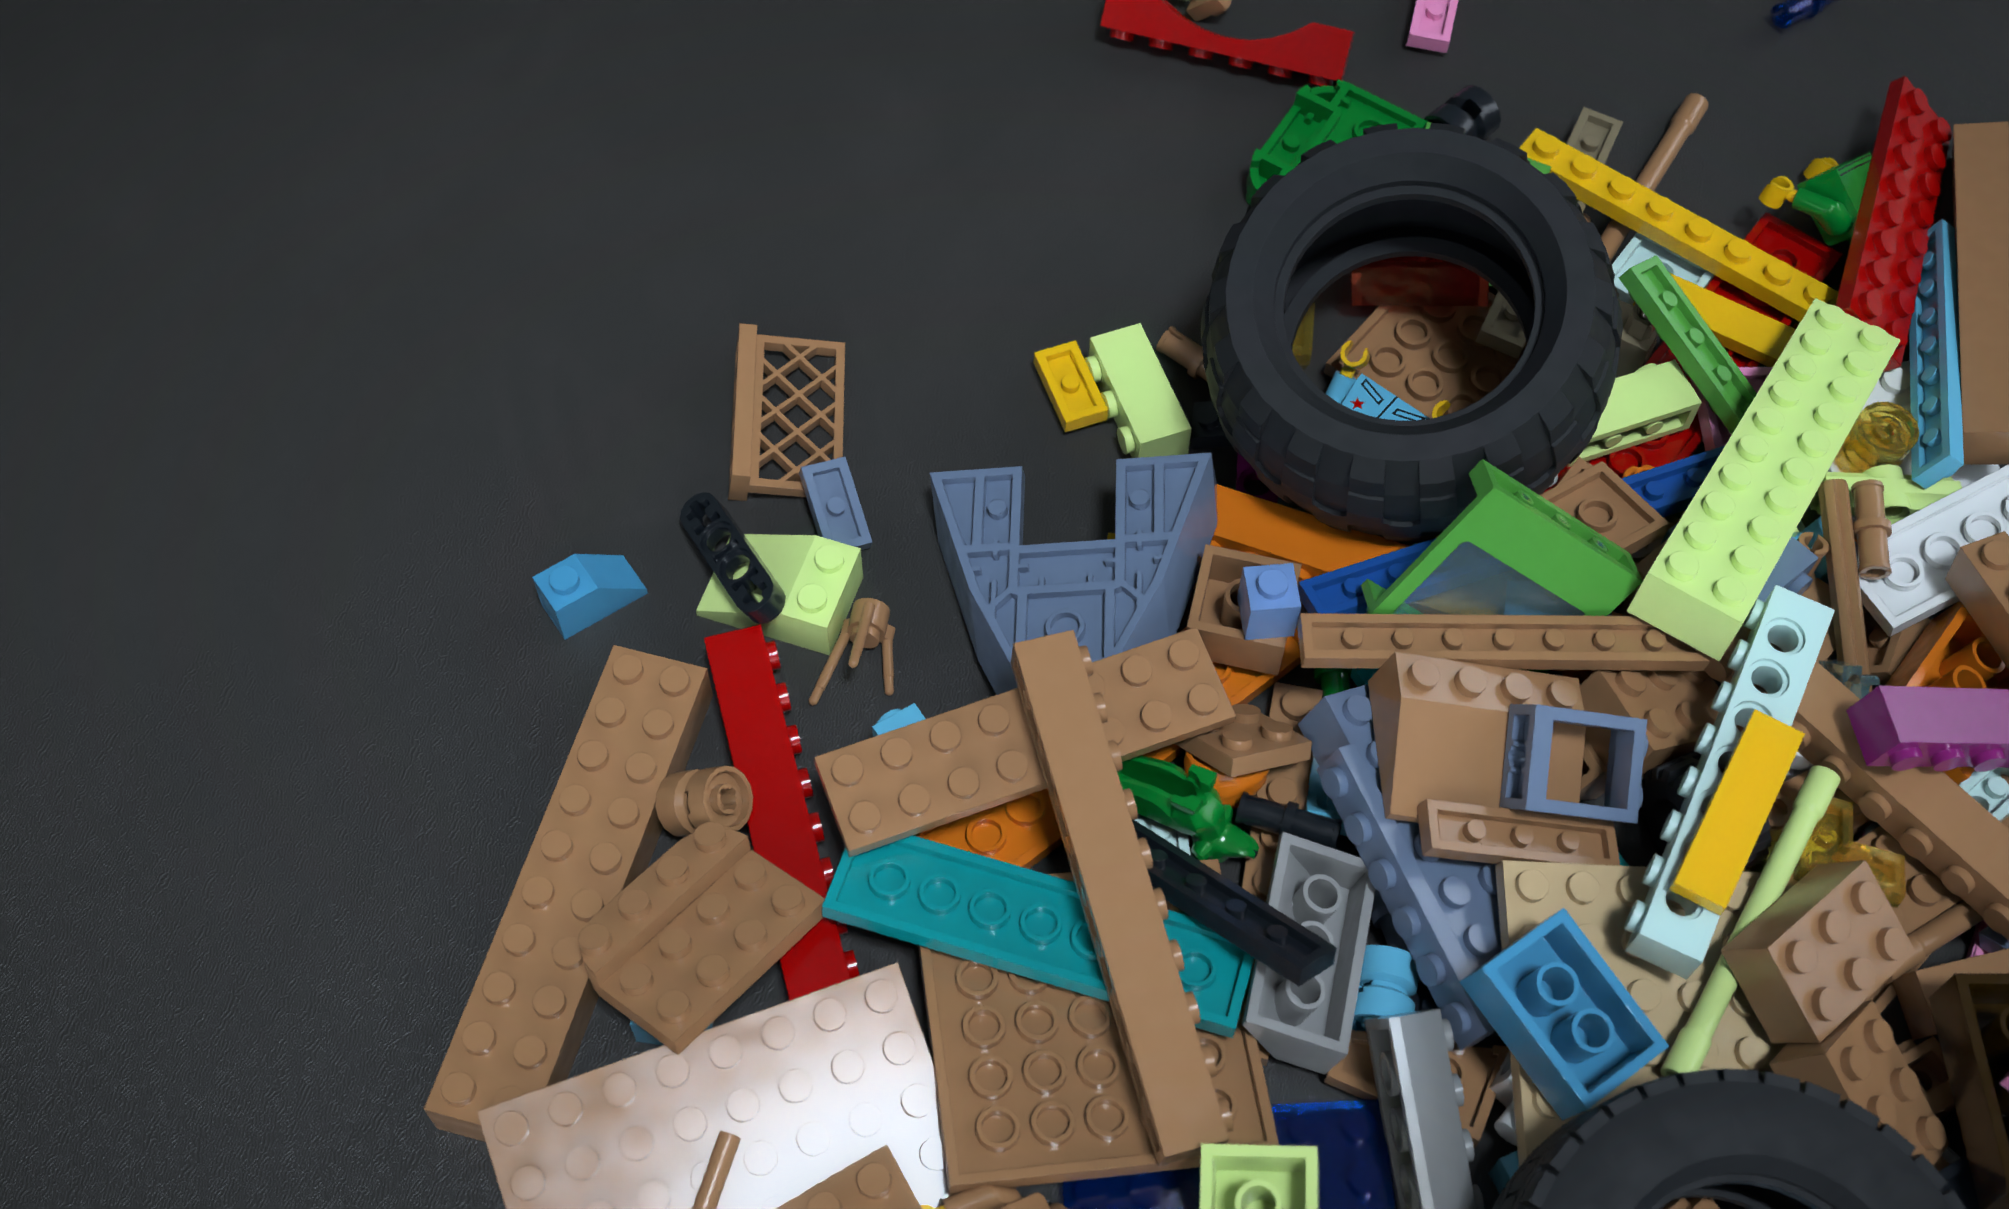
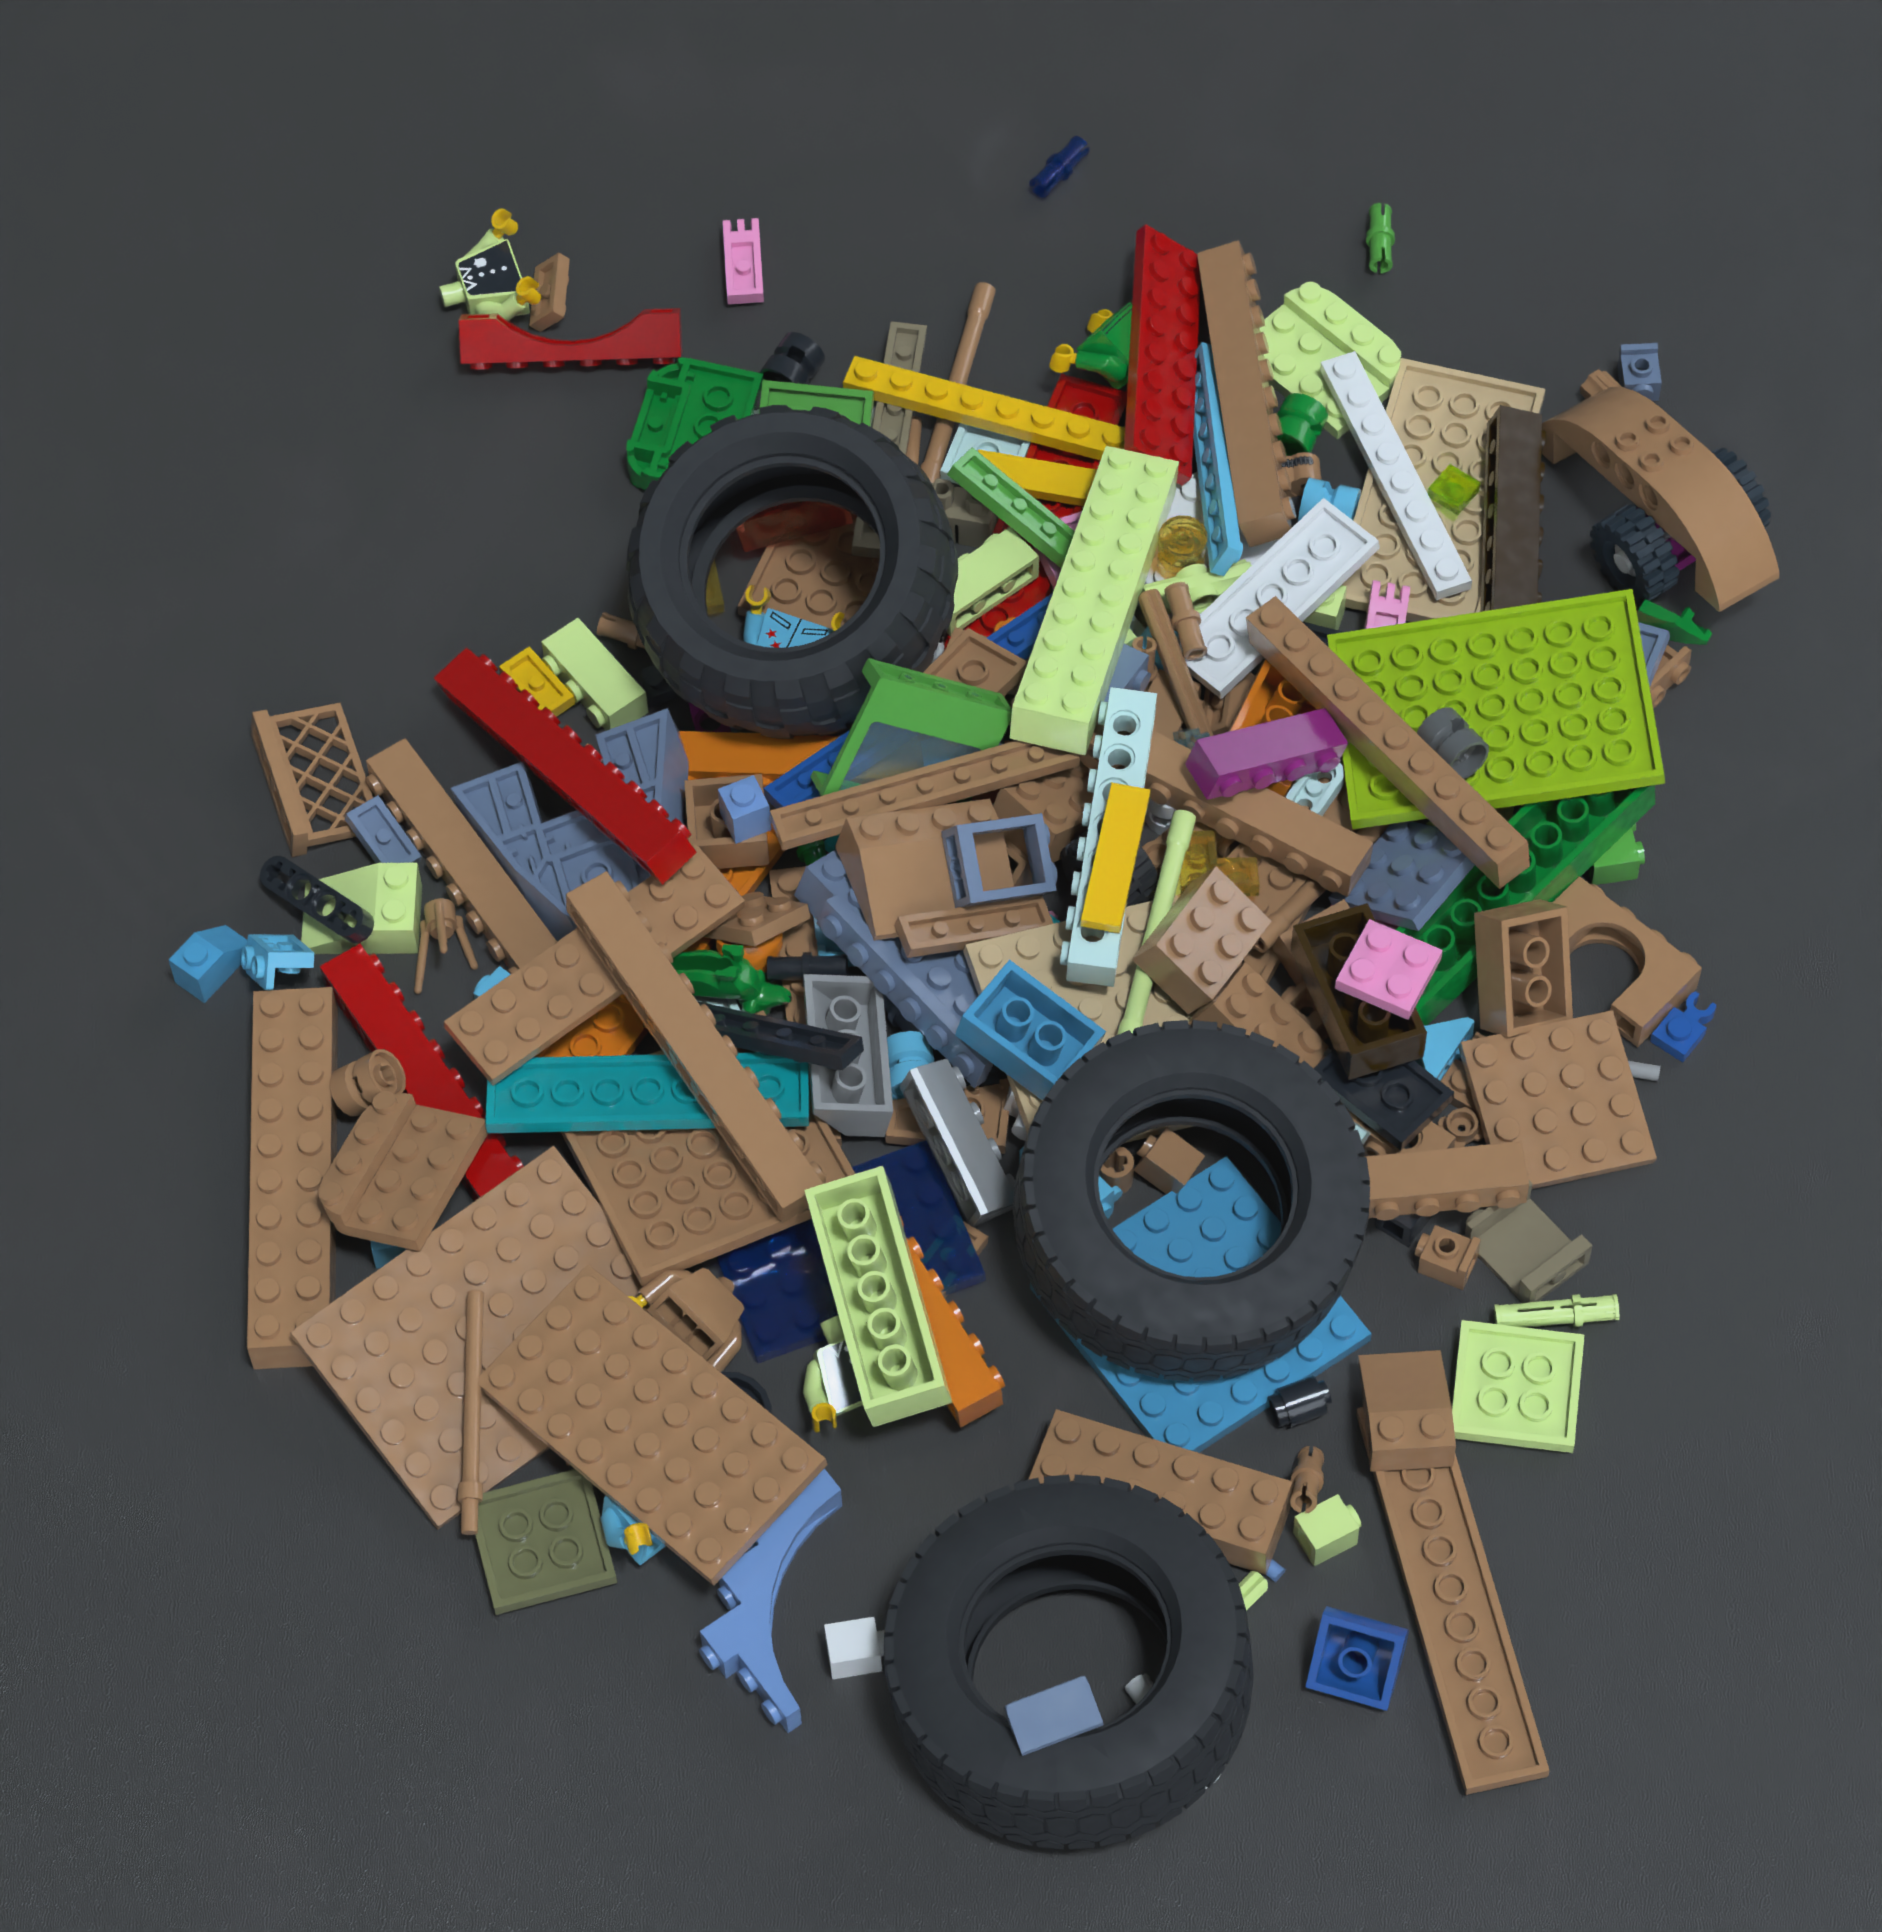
camera: 15 degrees left, 0 degrees up
(658, 604) = (273, 951): none -> medium azure bracket
(916, 560) = (458, 856): none -> medium nougat brick
(1078, 494) = (567, 766): none -> red brick

